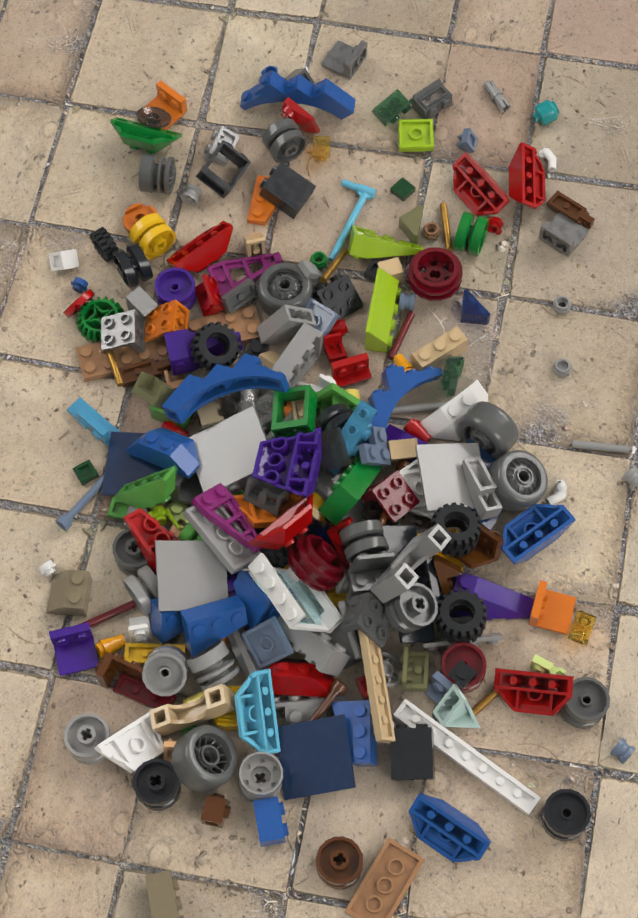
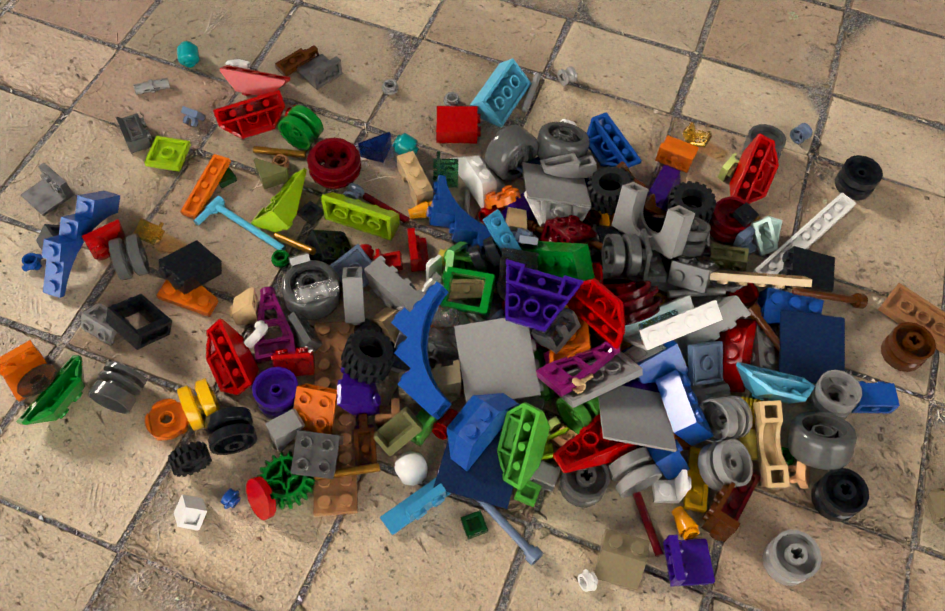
camera: 85 degrees left, 5 degrees down
(128, 413) = (411, 468): none -> white hair
(132, 745) = (799, 508): white wing -> none
(191, 194) = (155, 361): light grey wheel -> none
(203, 512) = (580, 383): none -> tan hand
(215, 810) = (866, 446): reddish brown brick -> none
(230, 261) = (261, 329): none -> white arm
(266, 282) = (308, 293): none -> clear piece
(384, 177) = (205, 186): none -> orange tile
(390, 108) = (128, 164): clear green bracket -> none
(390, 811) = (857, 300): none -> reddish brown piece
(392, 267) = (313, 196): tan panel -> none
(427, 430) = (502, 198): none -> orange plate
(447, 829) = (875, 257): blue wedge -> none
(481, 335) = (404, 144): none -> teal head
(525, 378) = (458, 124): none -> red brick
(584, 414) = (501, 93): none -> medium azure slope

